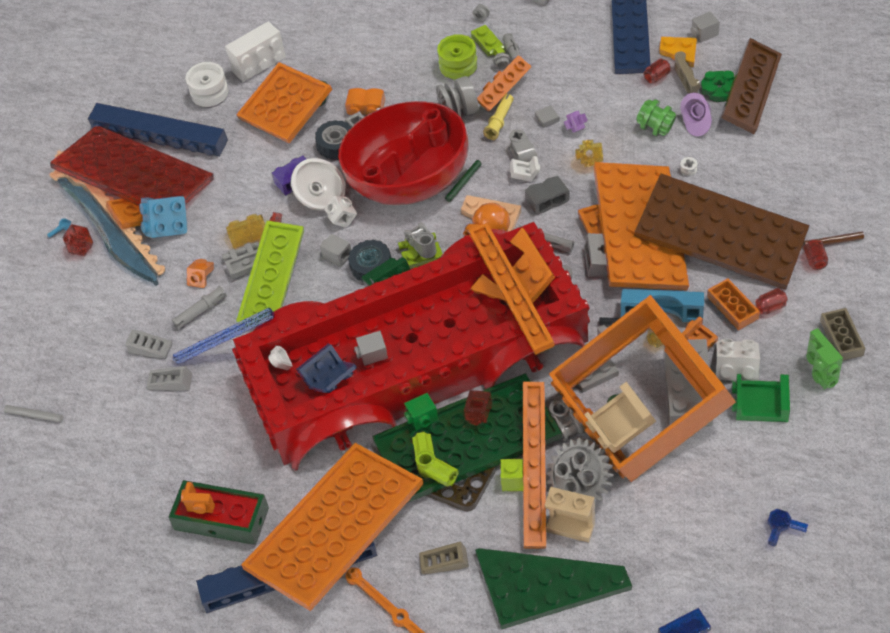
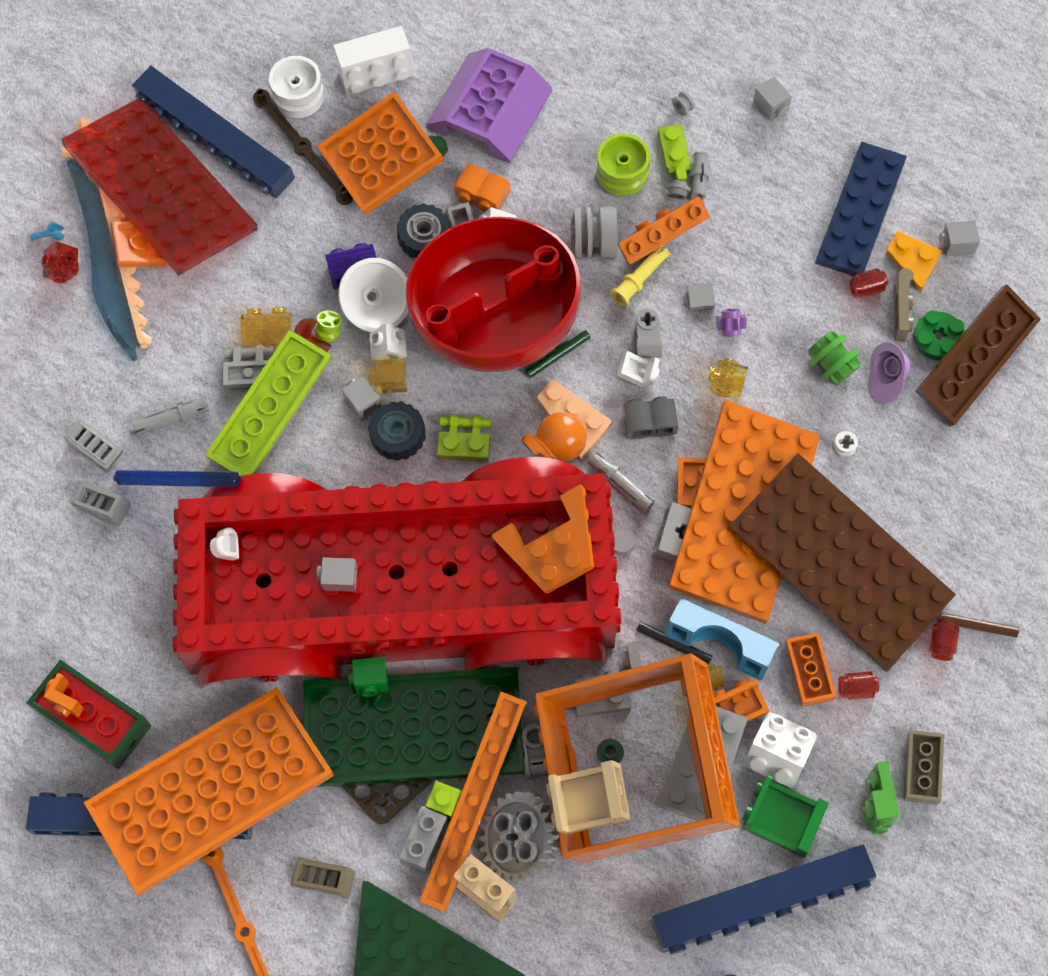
camera: 15 degrees right, 15 degrees up
(163, 216) = (171, 271): dark azure bracket -> none
(185, 102) = (263, 100): none -> dark brown piece
(198, 271) = (187, 364): orange bracket -> none
(292, 214) = (328, 326): none -> lime wheel
(325, 370) = (272, 587): dark blue bracket -> none
(349, 48) = (492, 102): none -> medium lavender slope
(350, 228) = (389, 376): none -> clear yellow brick
(386, 270) = (403, 465): dark green bracket -> none
(421, 240) = (467, 427): light grey piece -> none
(428, 464) = (356, 764): lime piece -> none
(475, 410) = (437, 689): clear red brick -> none
(508, 504) = (423, 840): none -> light grey brick
(511, 289) = (532, 566): orange plate -> none
(771, 455) = (762, 899): none -> dark blue brick

